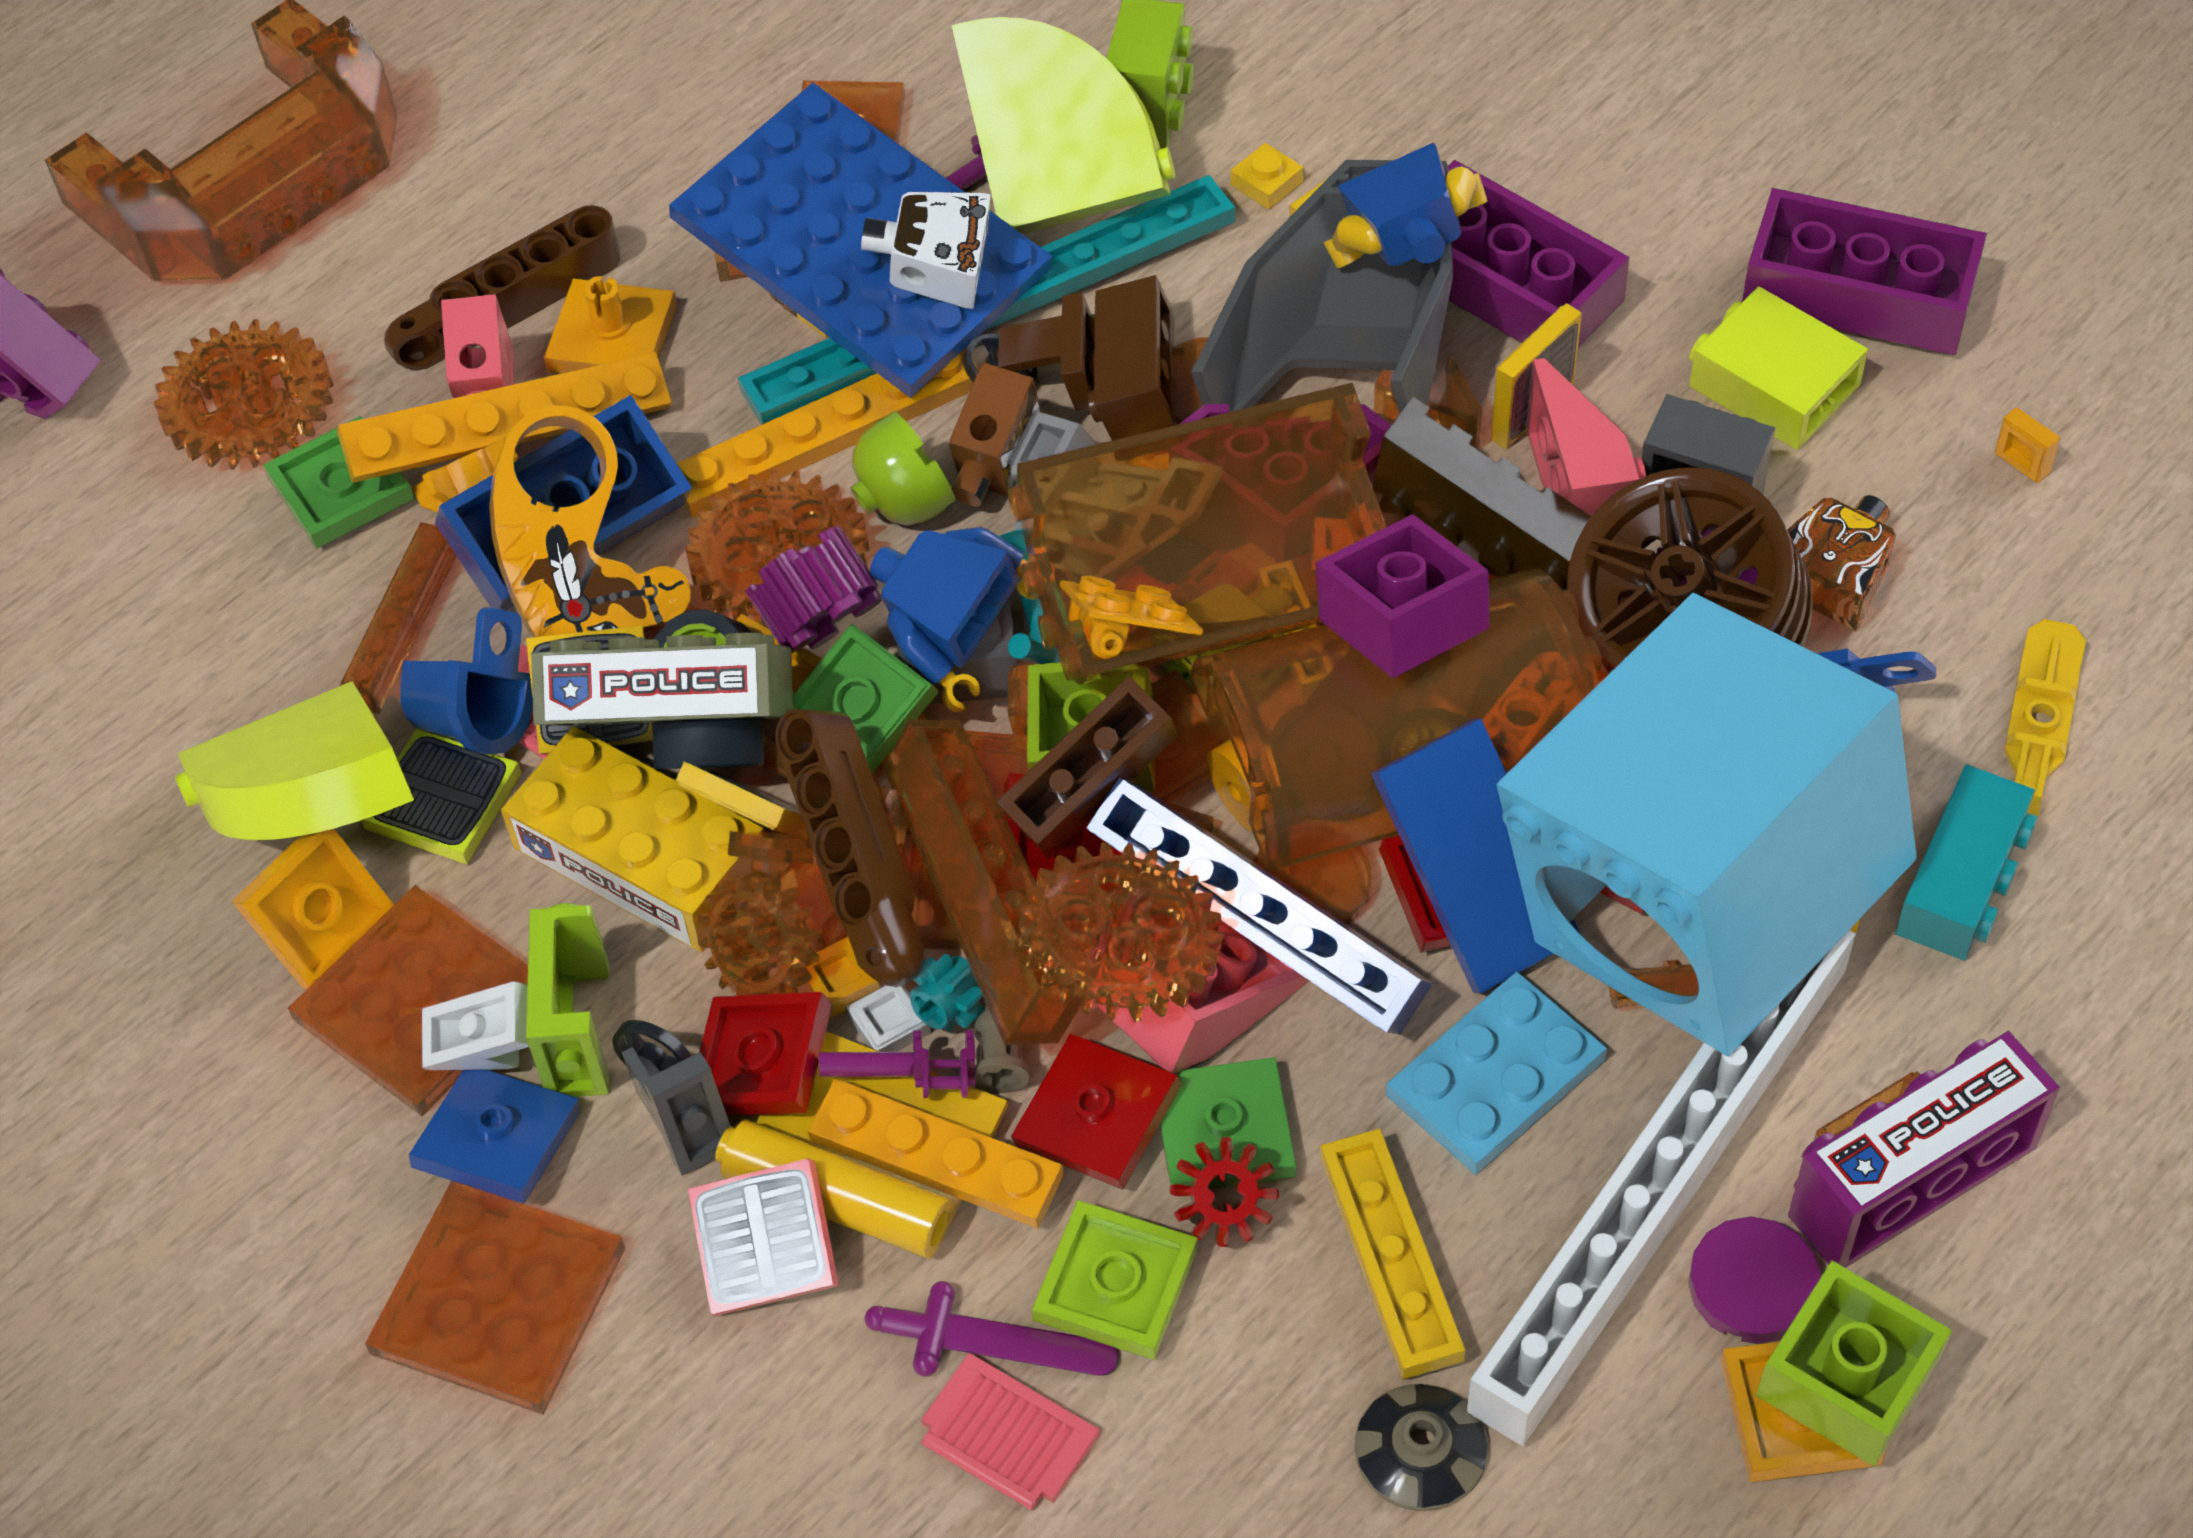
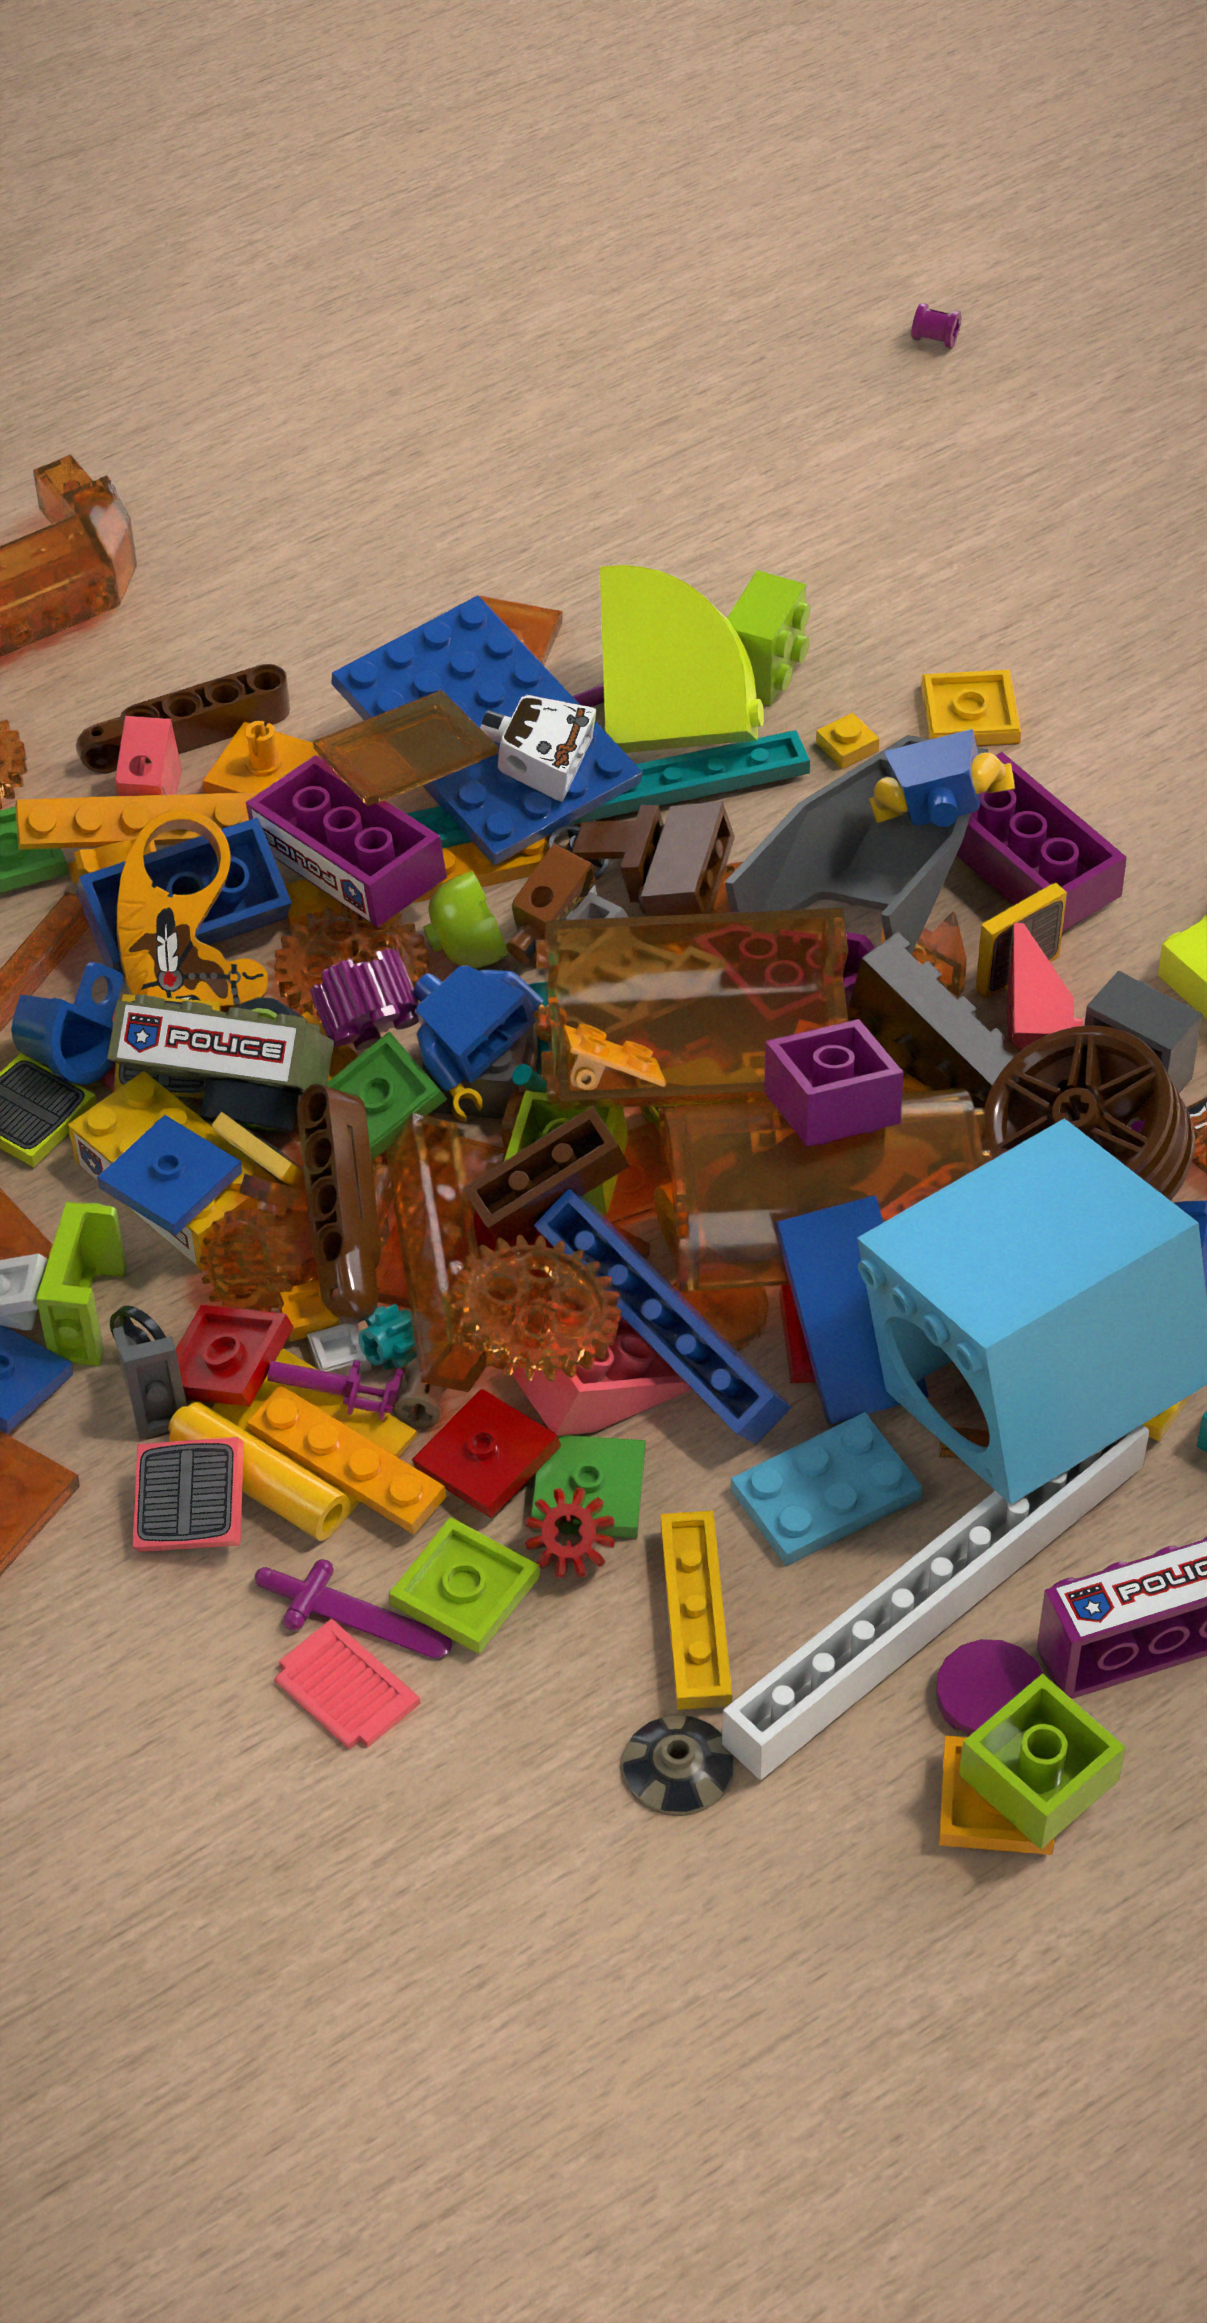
camera: 10 degrees right, 5 degrees down
(641, 850) = (169, 1175): none -> blue plate
(740, 401) = (354, 852): none -> magenta brick
(781, 280) = (405, 748): none -> clear orange piece
(1393, 112) = (974, 702): none -> yellow tile

